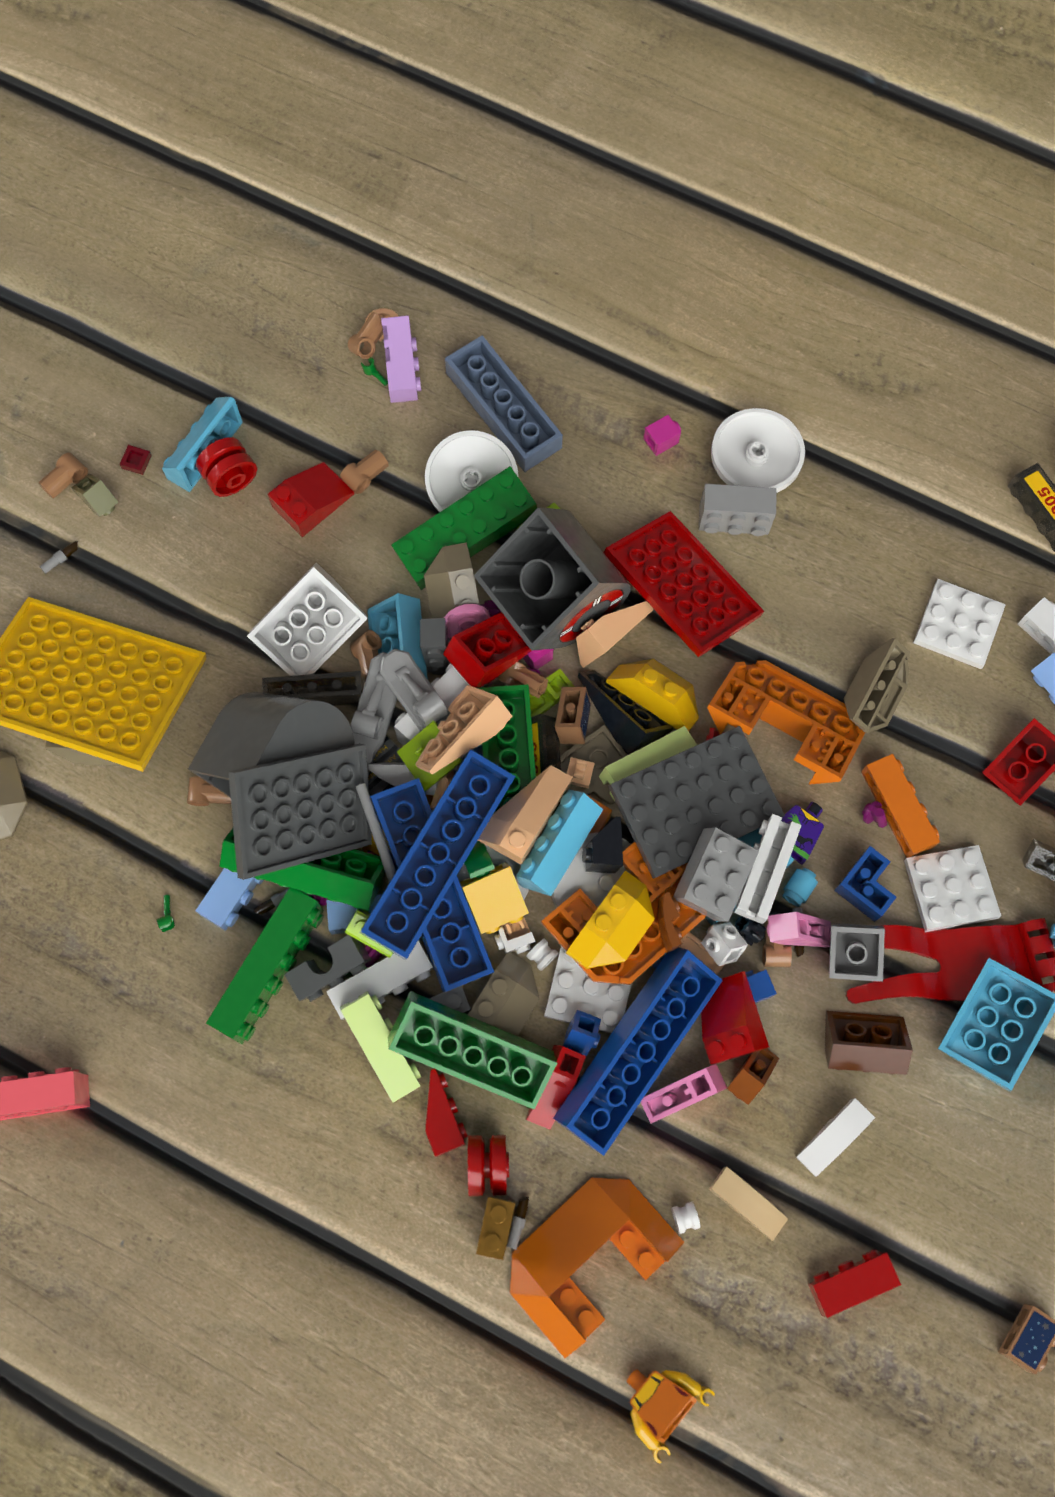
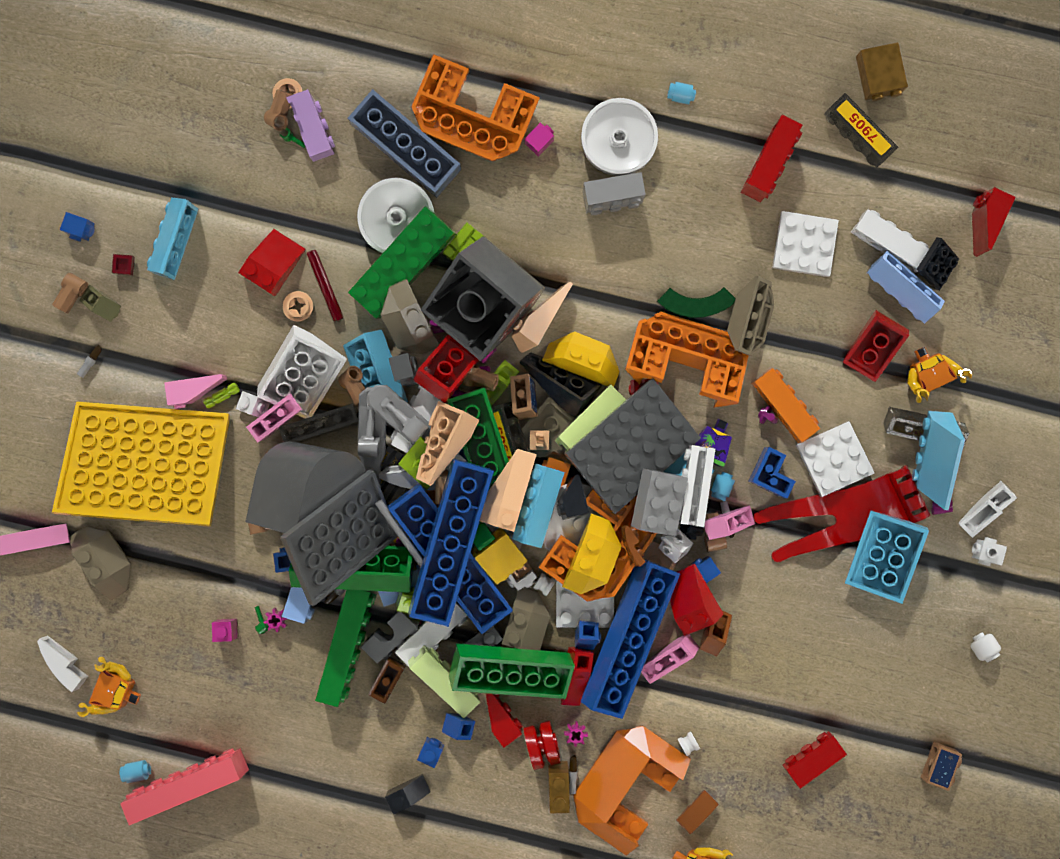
camera: 10 degrees left, 15 degrees up
(96, 407) = (77, 227): none -> blue brick
(117, 912) = (224, 630): none -> dark pink brick
(168, 615) = (188, 391): none -> bright pink slope
(182, 910) = (273, 624): none -> dark pink gear
(203, 631) = (221, 395): none -> lime axle
(215, 840) = (281, 561): none -> blue brick
(226, 467) = (198, 256): red wheel -> none
(238, 650) = (252, 404): none -> white bracket
(269, 662) = (274, 418): none -> bright pink slope
(289, 1190) = (407, 794): none -> black slope
(305, 1027) = (387, 680): none -> reddish brown brick
(319, 545) = (290, 302): none -> light nougat gear
(337, 1139) = (431, 752): none -> blue brick
(359, 475) = (306, 233): medium nougat piece -> none
(365, 537) = (325, 285): none -> dark red axle
(382, 1113) = (458, 727): none -> blue brick
(465, 617) = (424, 344): bright pink tile -> none
(543, 1167) = (575, 739): none -> dark pink gear
(553, 383) = (483, 136): none -> orange slope
(677, 1318) = (697, 812): none -> dark orange slope
(683, 583) = (584, 266): red plate -> none
(748, 1203) = (729, 723): tan slope -> none
(811, 665) = (696, 307): none -> dark green tile
(835, 1137) = (782, 662): white slope -> none
(841, 423) = (681, 93): none -> medium azure brick
(856, 952) = (773, 528): light grey brick -> none
(867, 1043) = (793, 589): reddish brown slope -> none
(936, 515) = (772, 158): none -> red brick

